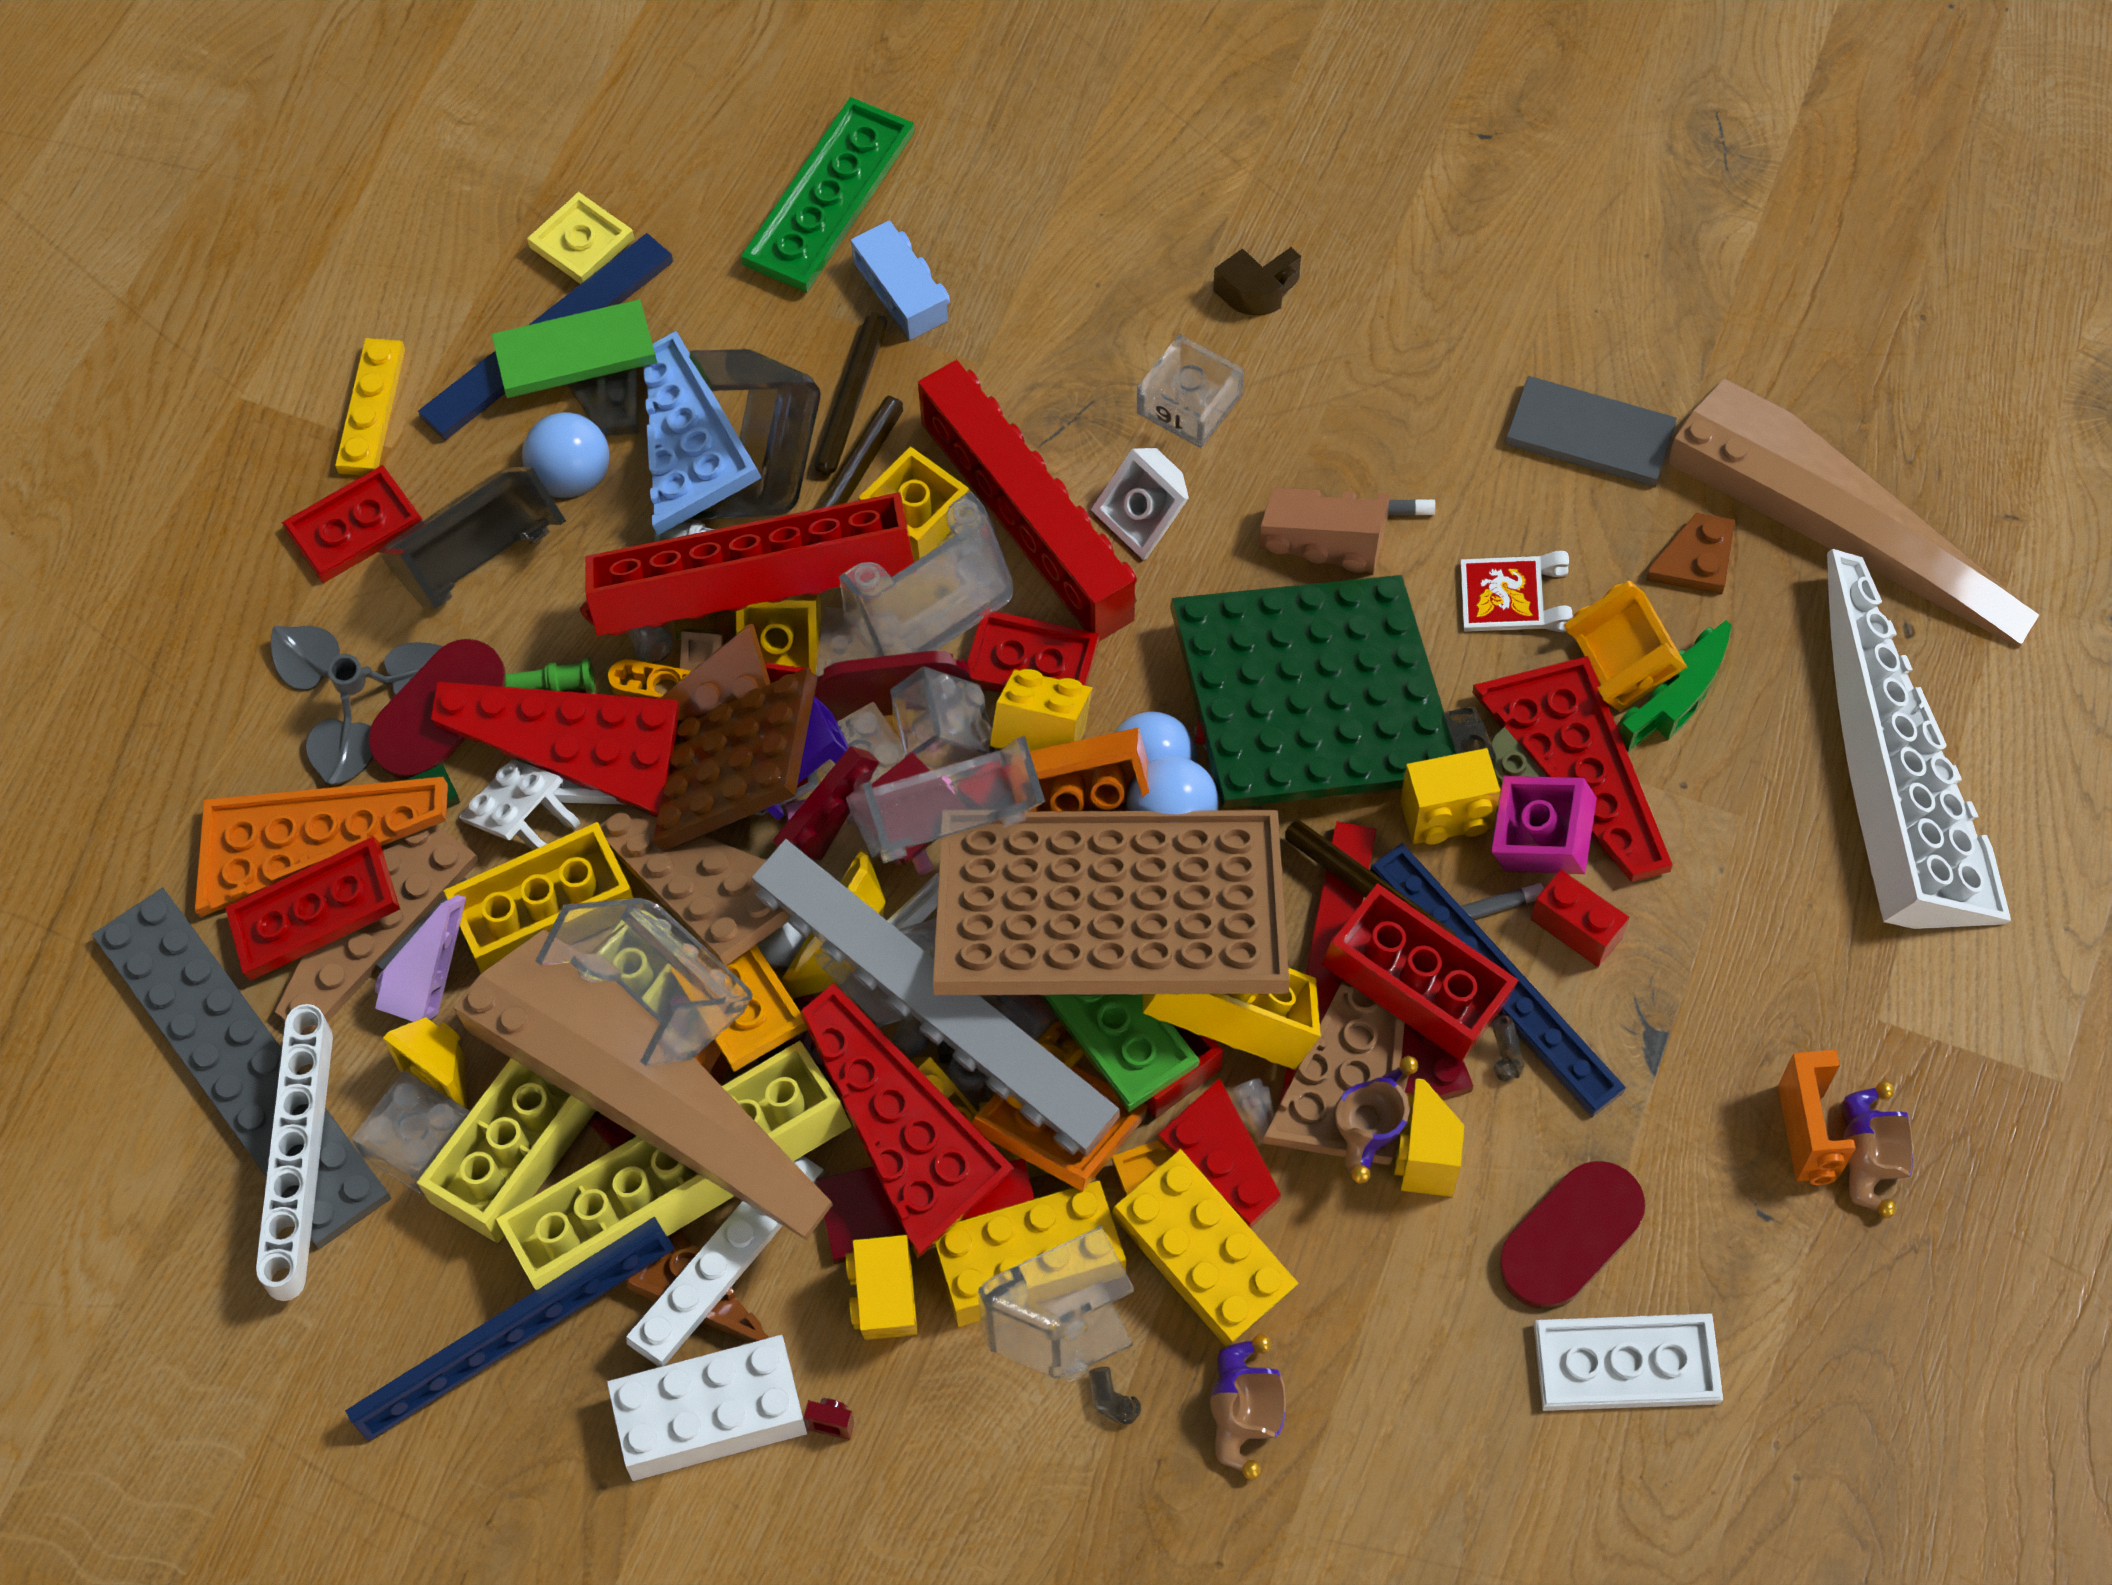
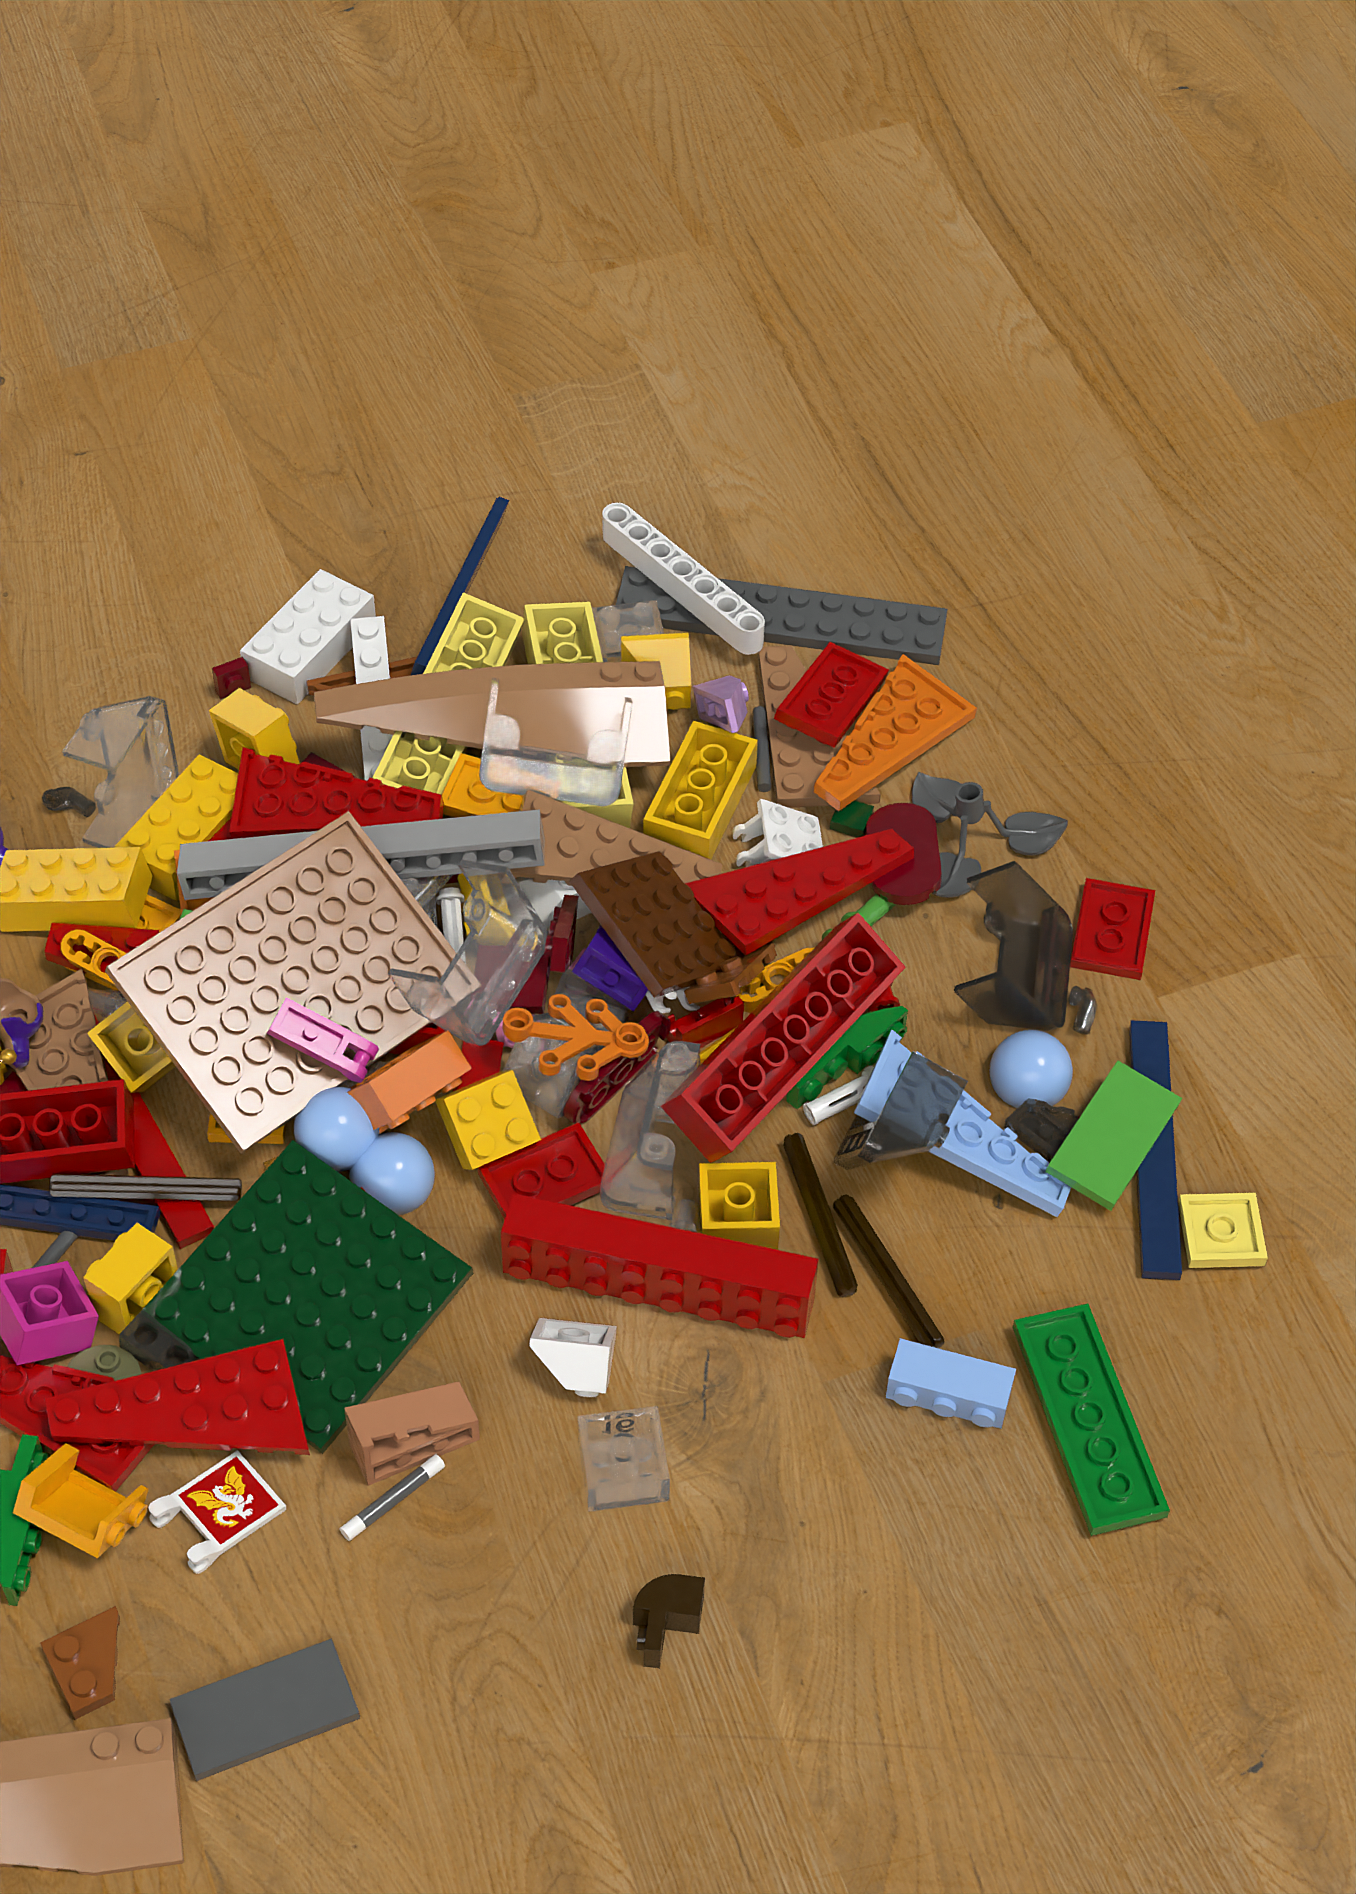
camera: 135 degrees right, 10 degrees down
(370, 406) = (1205, 1007): yellow plate -> none
(458, 470) = (1087, 1008): none -> clear smoke arm
(915, 683) = (620, 1040): none -> orange plant
(1137, 831) = (322, 1039): none -> plate
(1234, 1134) = (83, 961): none -> light orange beam
(1464, 650) = (204, 1404): none -> red wing

